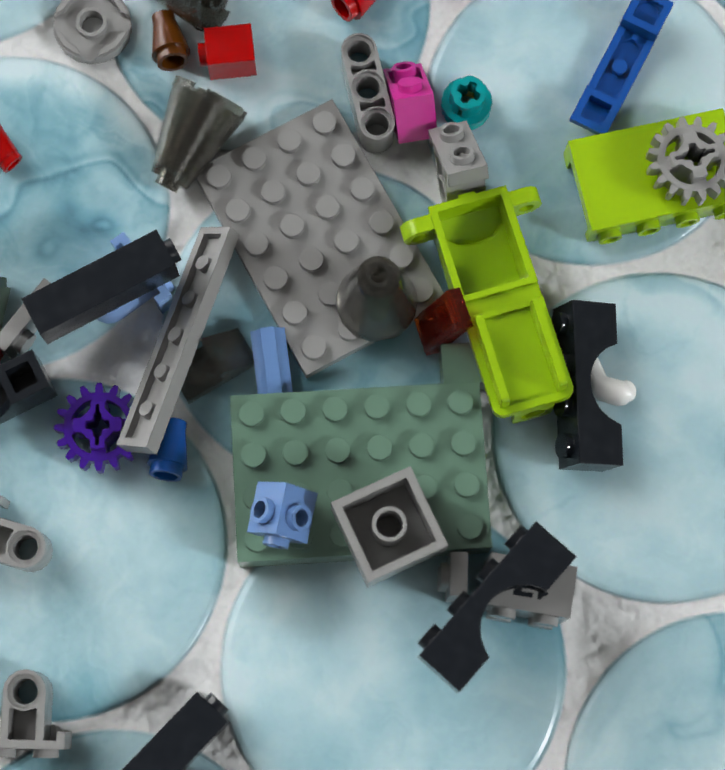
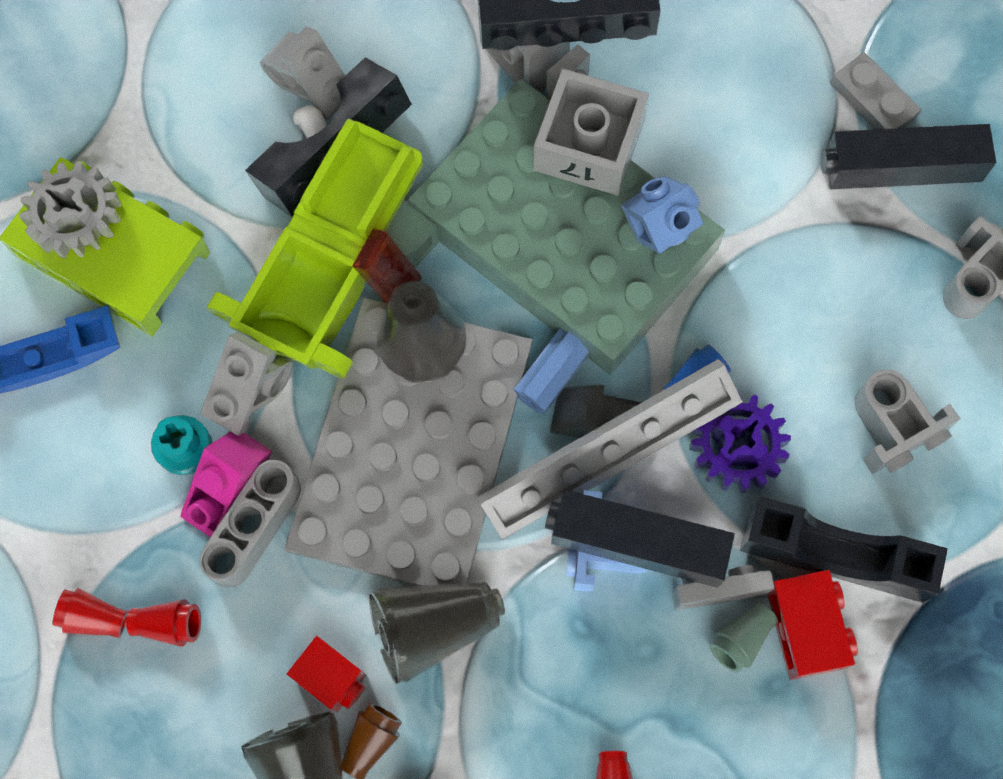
camera: 130 degrees left, 5 degrees down
(658, 419) = (306, 69): none -> light grey pin

